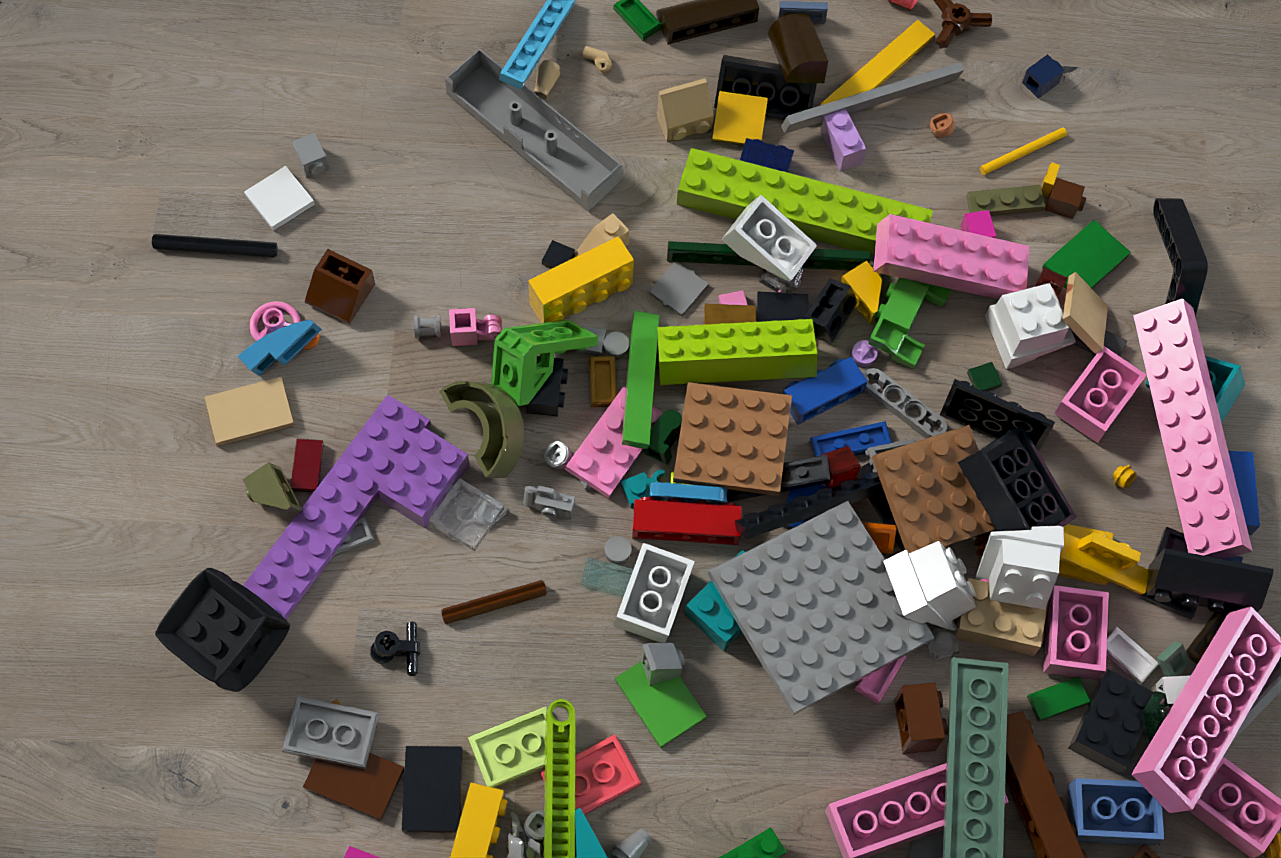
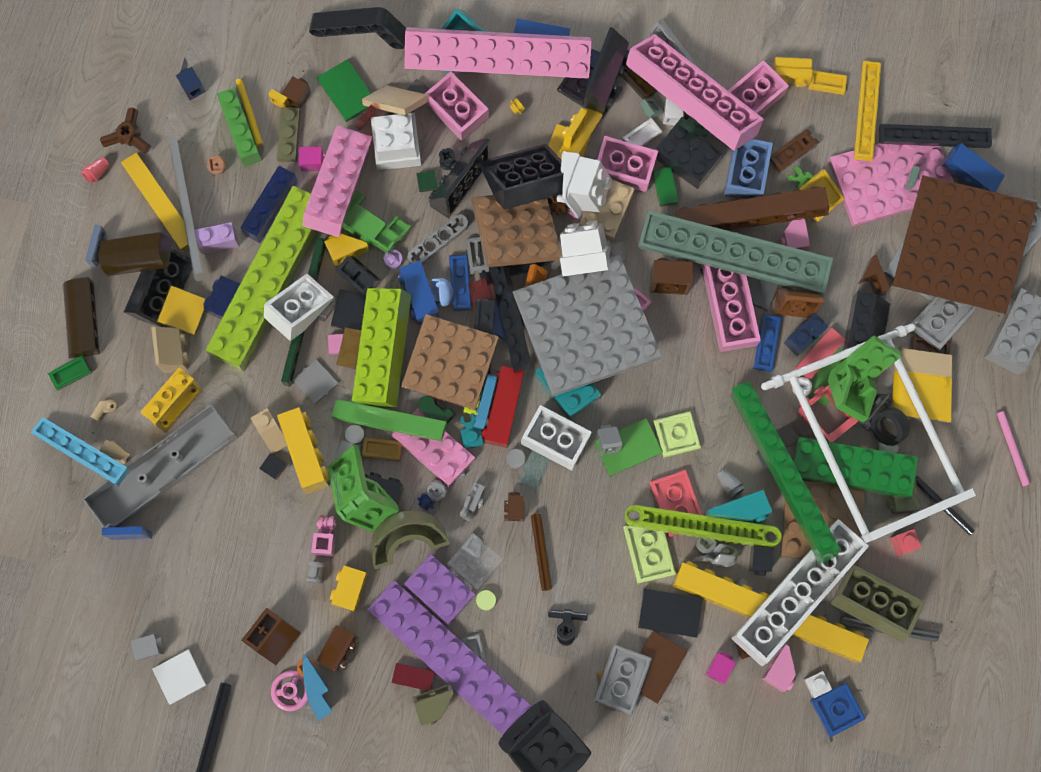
camera: 80 degrees left, 10 degrees up
(249, 411) = (361, 717): tan tile -> none
(331, 367) = (337, 649): none -> reddish brown slope
(411, 368) = (349, 588): none -> yellow brick
(419, 540) = (486, 600): none -> yellowish green tile
(446, 105) = (124, 533): none -> blue tile
(539, 444) = (426, 502): none -> clear blue plate
(549, 556) = (514, 507): none -> reddish brown brick
(618, 122) = (172, 400): none -> yellow window
(691, 765) = (677, 434): none -> yellowish green tile
(832, 418) = (442, 291): none -> light blue hair
(904, 188) = (268, 204): none -> clear blue brick
(998, 139) = (239, 127): none -> bright green brick
(1024, 389) = (445, 154): none -> black bush

